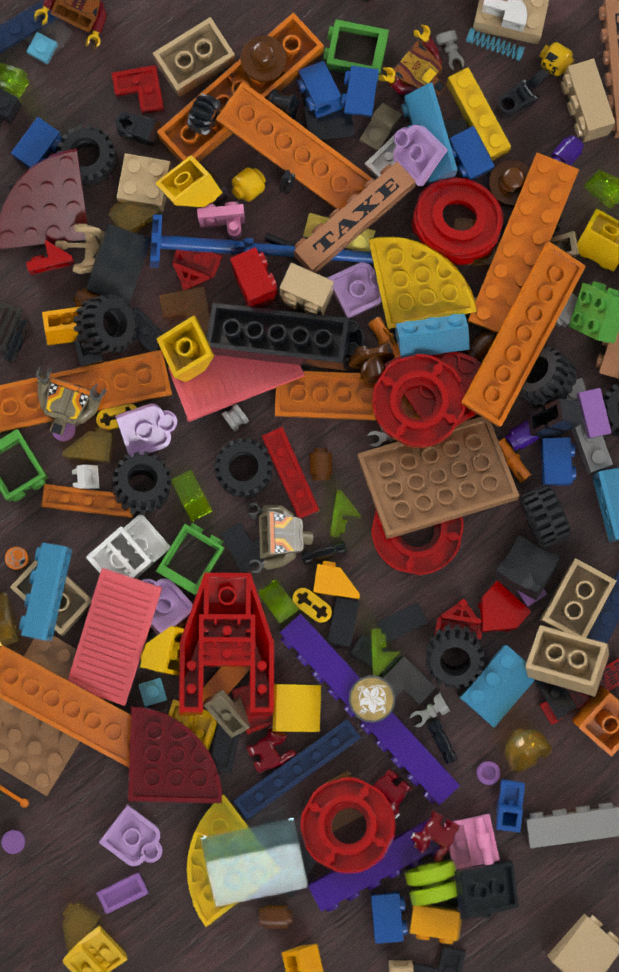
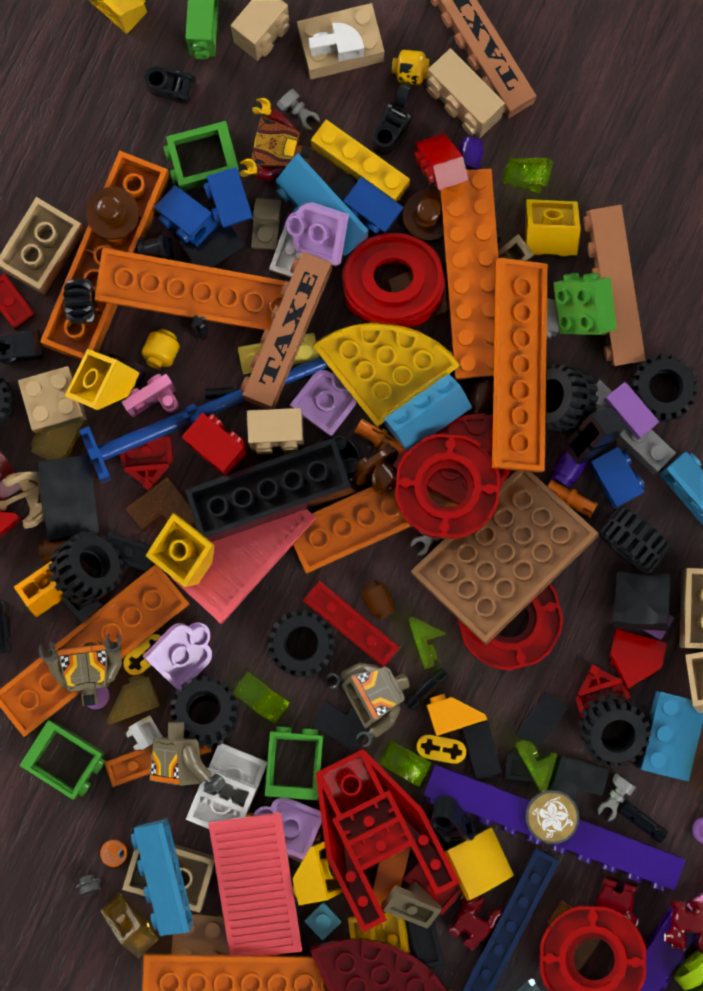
camera: 25 degrees left, 0 degrees up
(102, 510) = (178, 761): none -> dark tan torso
(235, 417) = (266, 595): light grey wheel -> none
(291, 663) = (451, 821): none -> black piece
(520, 49) = (312, 88): medium azure piece -> none
(541, 144) = (440, 161): none -> red brick

